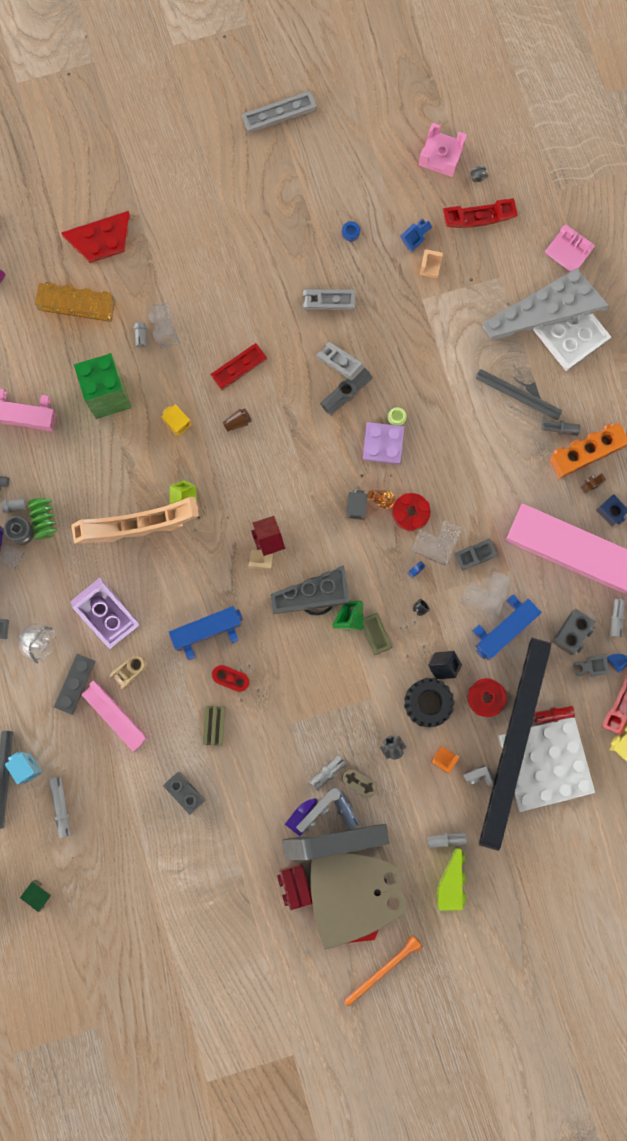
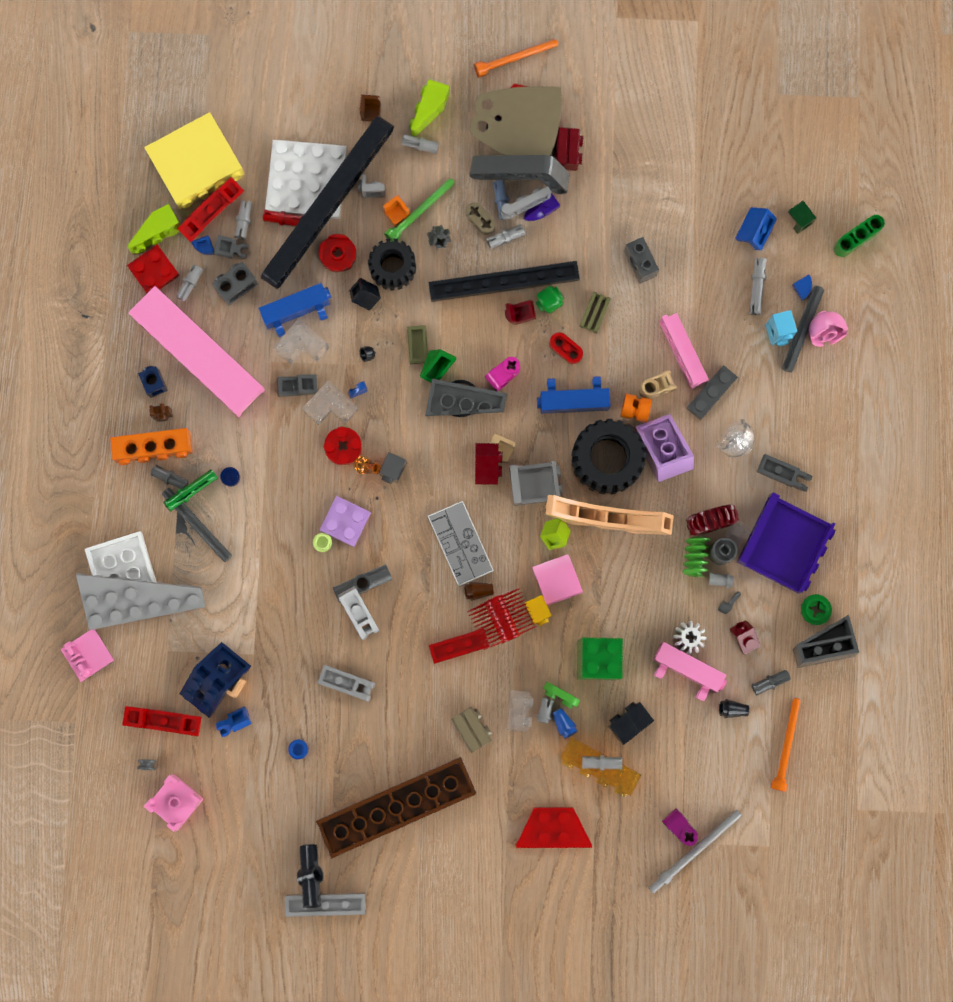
camera: 160 degrees left, 0 degrees up
(14, 823) = (803, 287): none -> blue tile
(33, 436) = (693, 632): none -> white gear
(36, 554) = (712, 519): none -> dark red gear
(59, 348) = (630, 723): none -> black brick
(73, 300) = (601, 762): none -> light grey pin
(79, 869) = (756, 227): none -> blue panel
(119, 328) = (564, 724): none -> blue cone
(134, 353) = (553, 692): none -> bright green plate
(136, 641) = (642, 408): none -> orange wheel
(137, 564) = (622, 435): none -> black tyre
(167, 454) = (557, 579): none -> bright pink slope
(201, 296) = (471, 729): none -> dark tan brick
(205, 395) = (501, 618): none -> red piece
(217, 537) = (534, 482): none -> light grey panel
(245, 210) = (396, 807): none -> reddish brown tile
(262, 721) = (549, 299): none -> green head
(269, 458) = (460, 543): none -> light grey tile
(284, 629) = (500, 375): none -> dark pink piece
(287, 698) = (520, 312): none -> dark red bracket
(300, 127) = (310, 876): none -> black piece
(313, 725) = (504, 281): none -> black plate
(438, 736) = (395, 233): none -> bright green piece
(451, 256) = (213, 679): none -> dark blue bracket
(505, 448) = (230, 476): none -> clear blue tile
(510, 859) = (369, 107): none -> reddish brown panel
(536, 421) = (184, 494): none -> green pin
(591, 700) = (243, 220): none -> light grey pin

